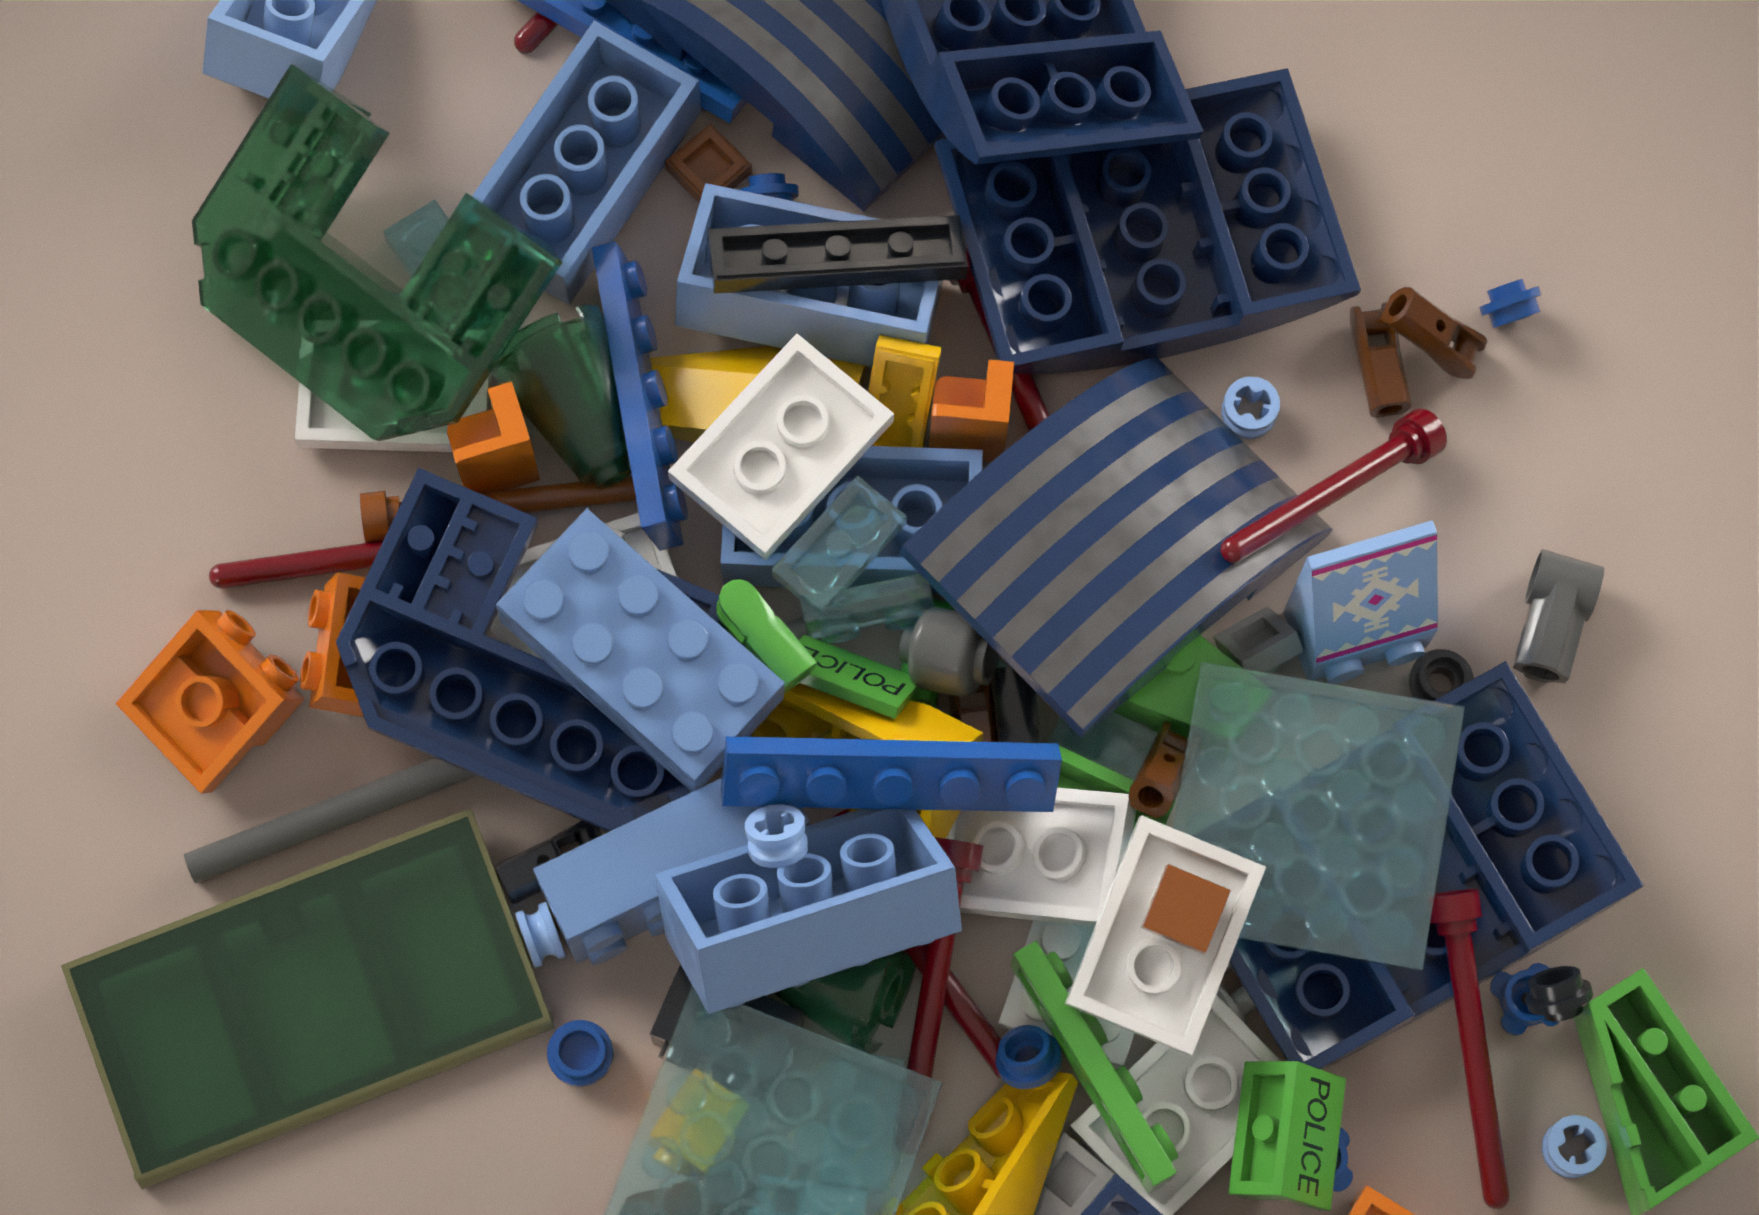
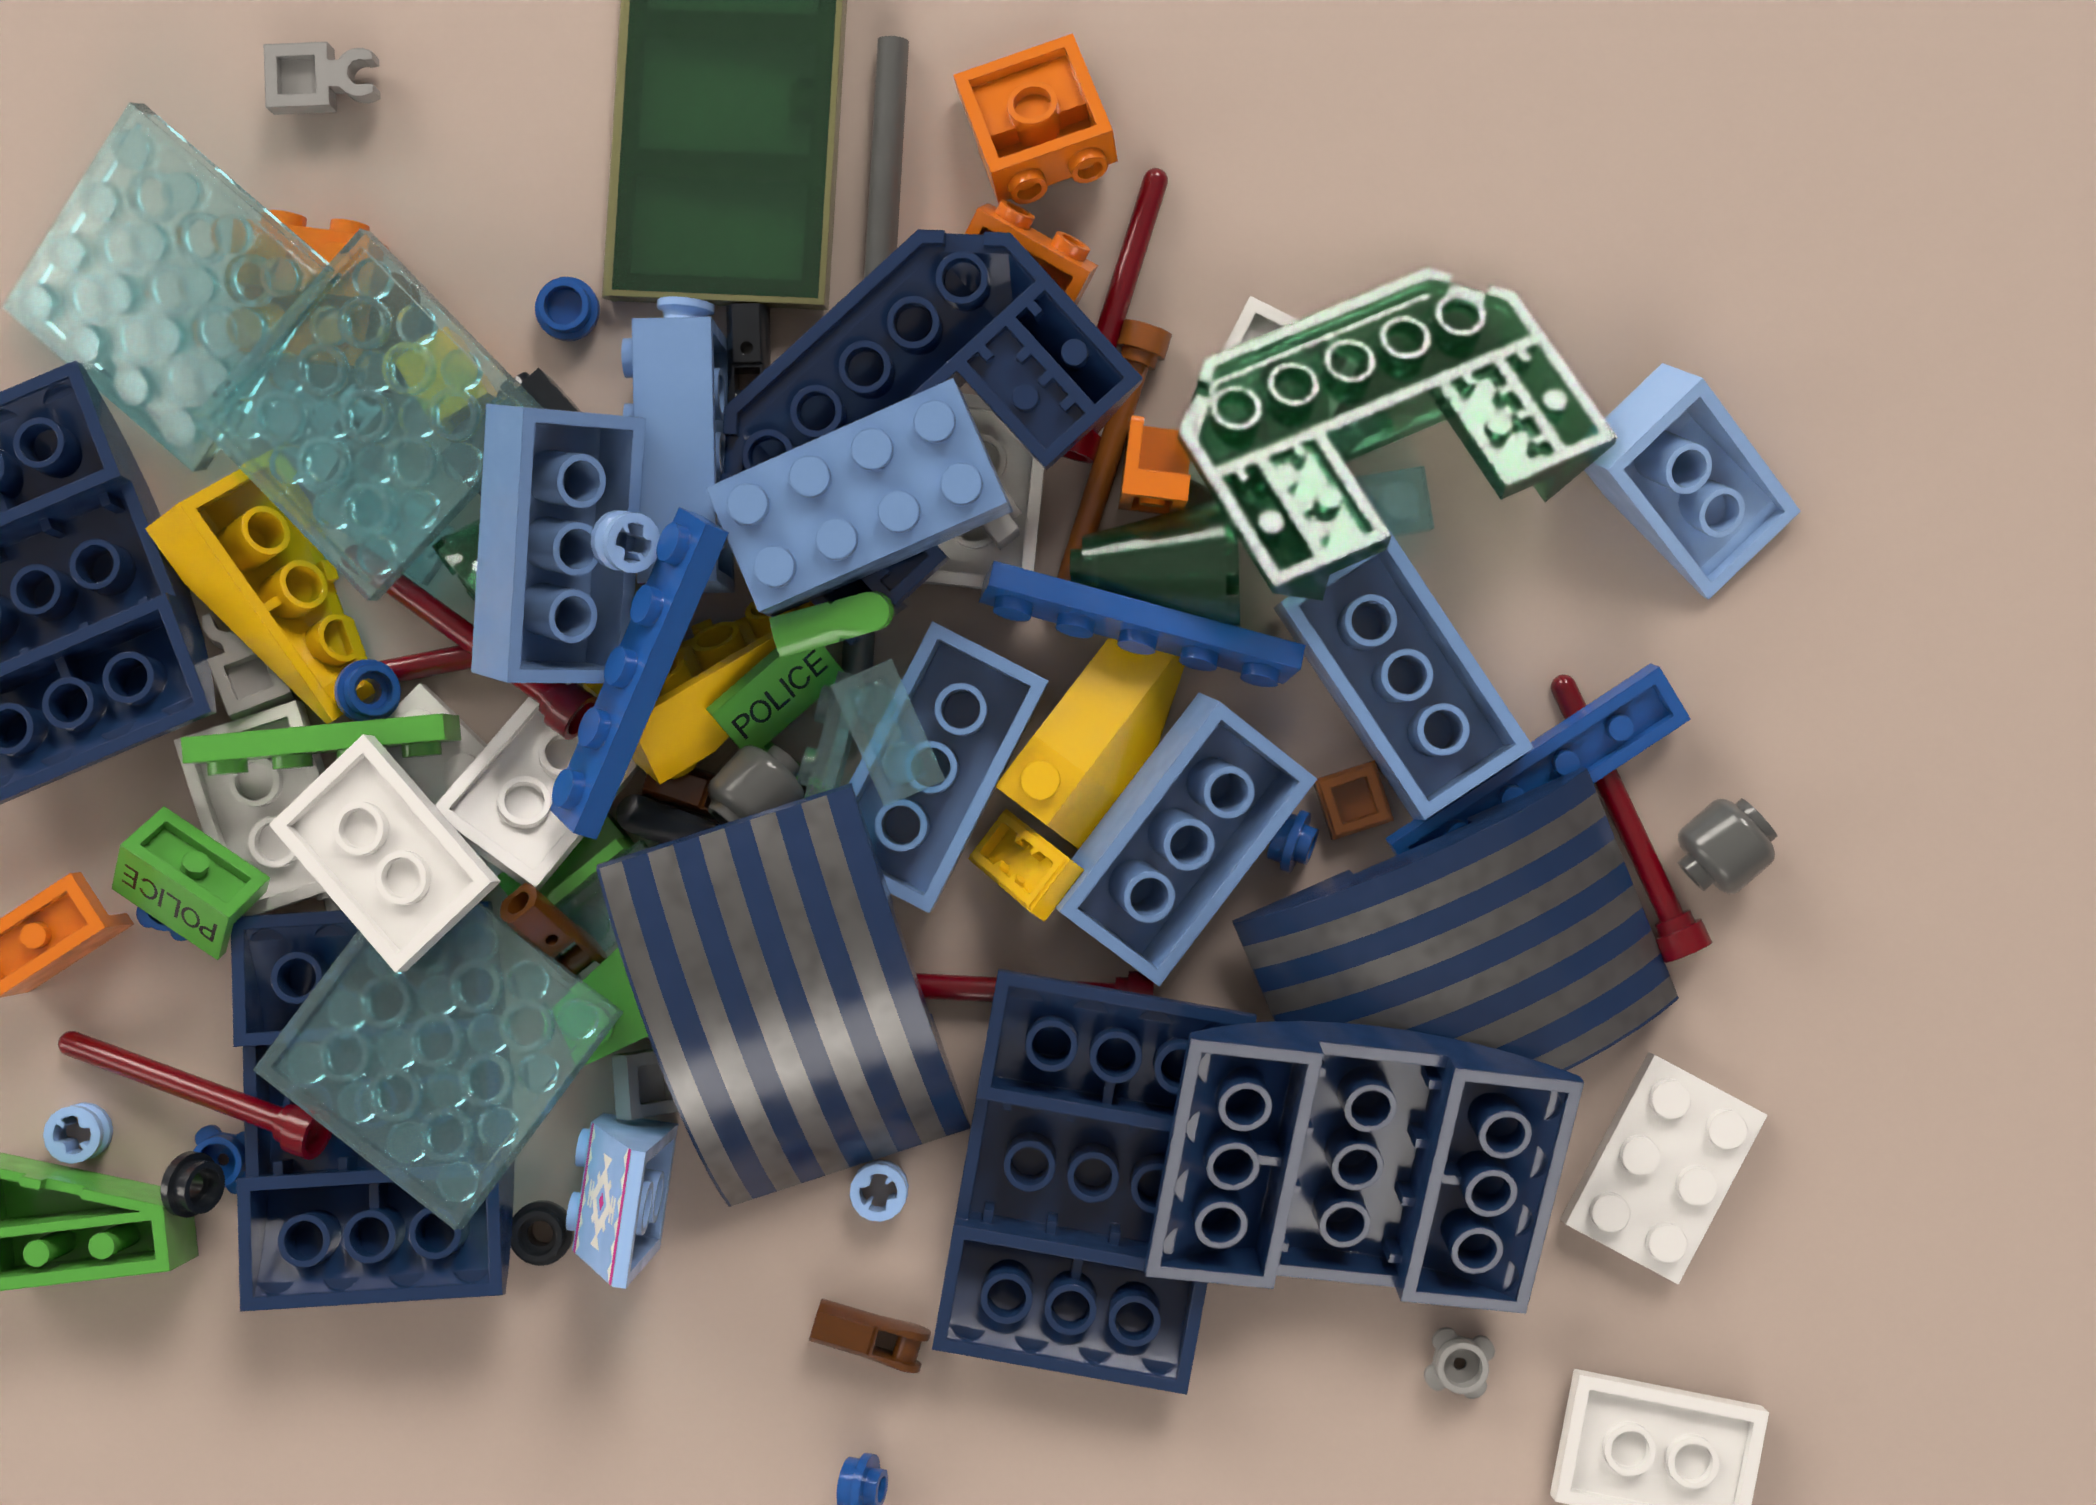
camera: 120 degrees right, 15 degrees up
(781, 446) = (1010, 724): white plate -> none
(837, 254) = (1179, 866): black tile -> none
(973, 411) = (980, 926): orange panel -> none
(1185, 909) = (386, 878): dark orange tile -> none
(1412, 440) = (773, 1325): dark red piece -> none
(1433, 331) = (865, 1396): reddish brown bar -> none
(1560, 601) = (561, 1381): dark grey piece -> none

